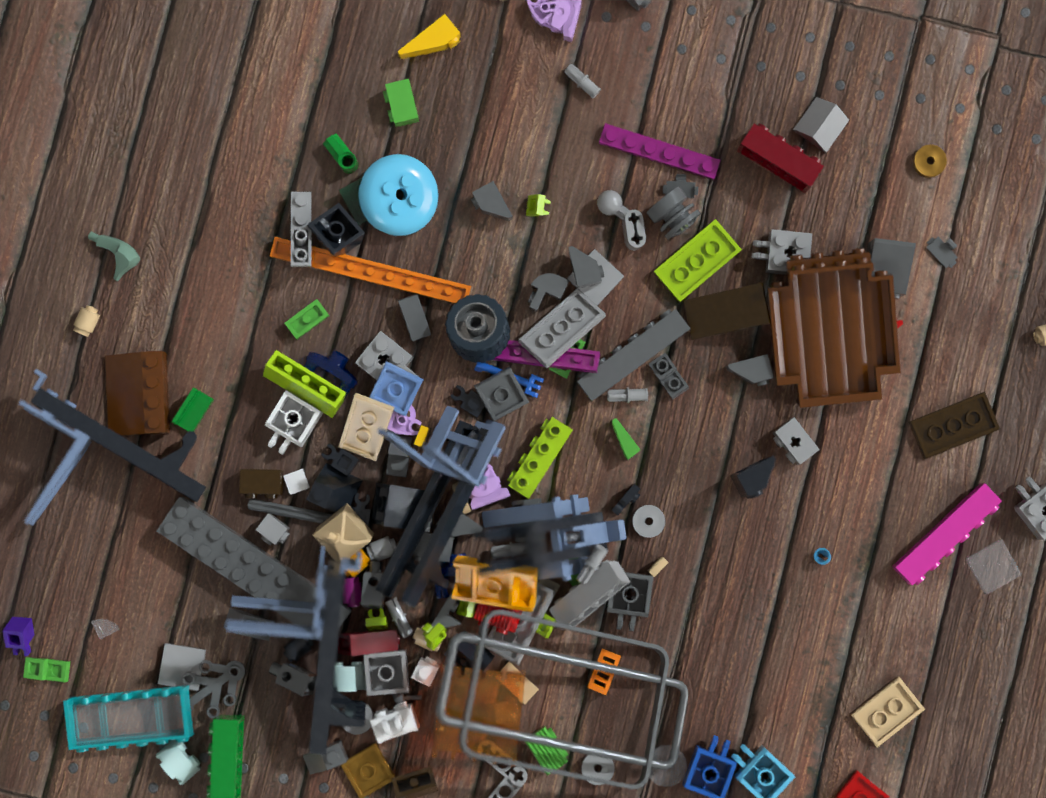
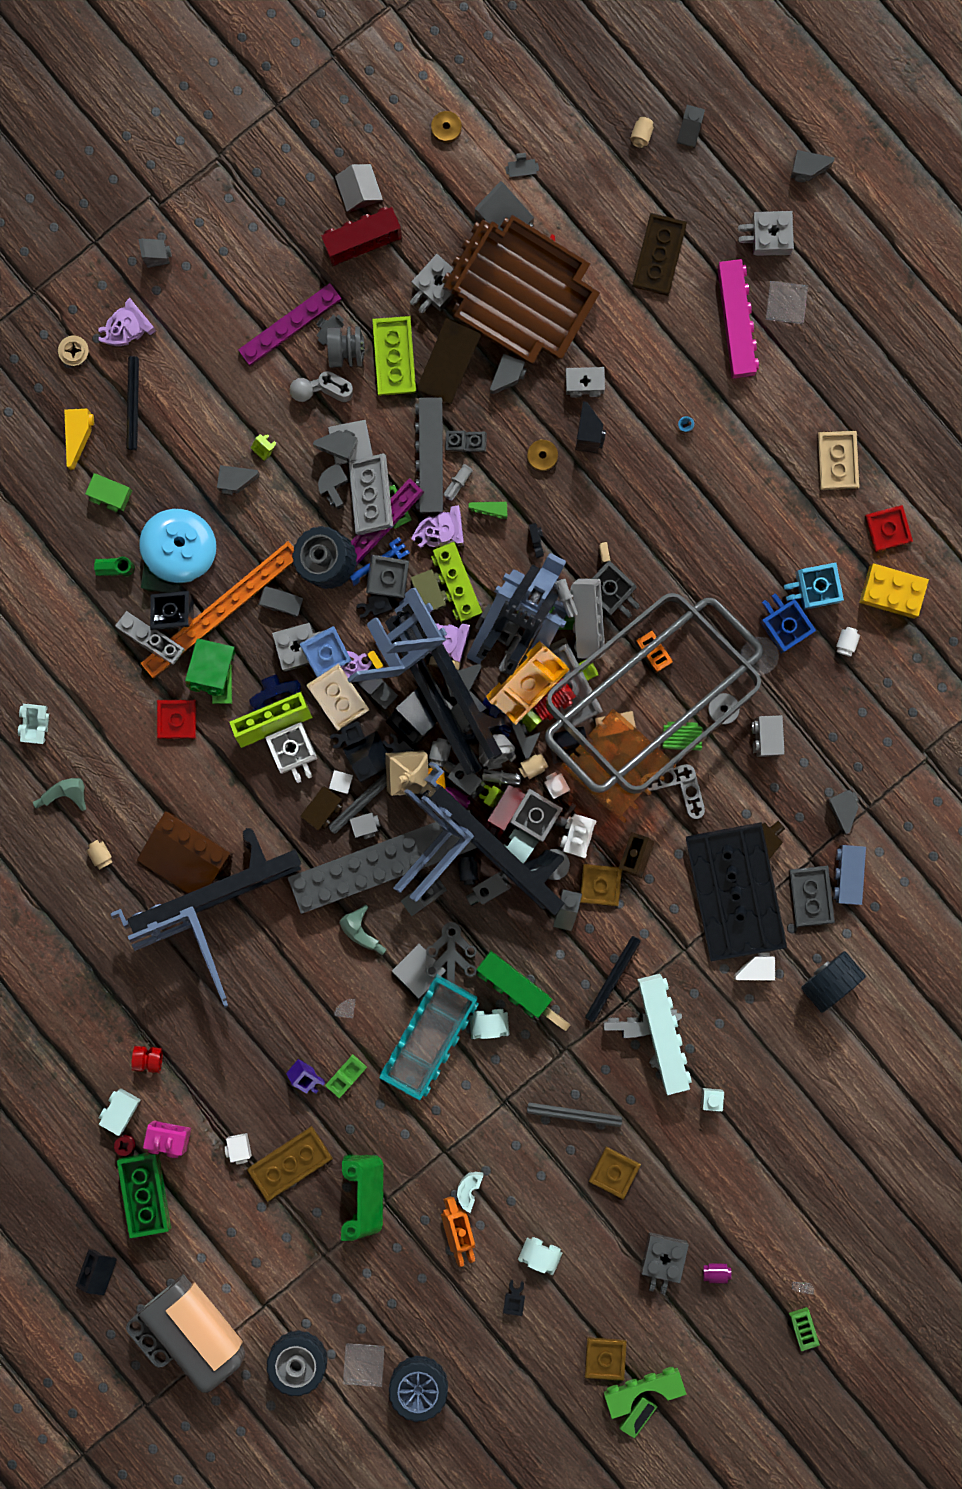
camera: 55 degrees left, 0 degrees up
(157, 185) = (34, 723): none -> light aqua cylinder
(177, 582) = (352, 928): none -> sand green animal
(193, 410) = (228, 821): green panel -> none
(249, 302) = (176, 719): none -> red tile
(312, 298) = (209, 667): none -> green panel
(425, 604) = (506, 748): none -> light grey cone
(434, 635) = (533, 758): lime tile -> none
(493, 67) = (132, 403): none -> black axle
(515, 437) = (428, 589): none -> olive brick
(579, 411) = (443, 528): none -> lavender piece
(582, 80) = (192, 343): light grey axle -> none
(657, 517) = (565, 544): light grey piece -> none
(711, 444) = (551, 455): none -> pearl gold piece

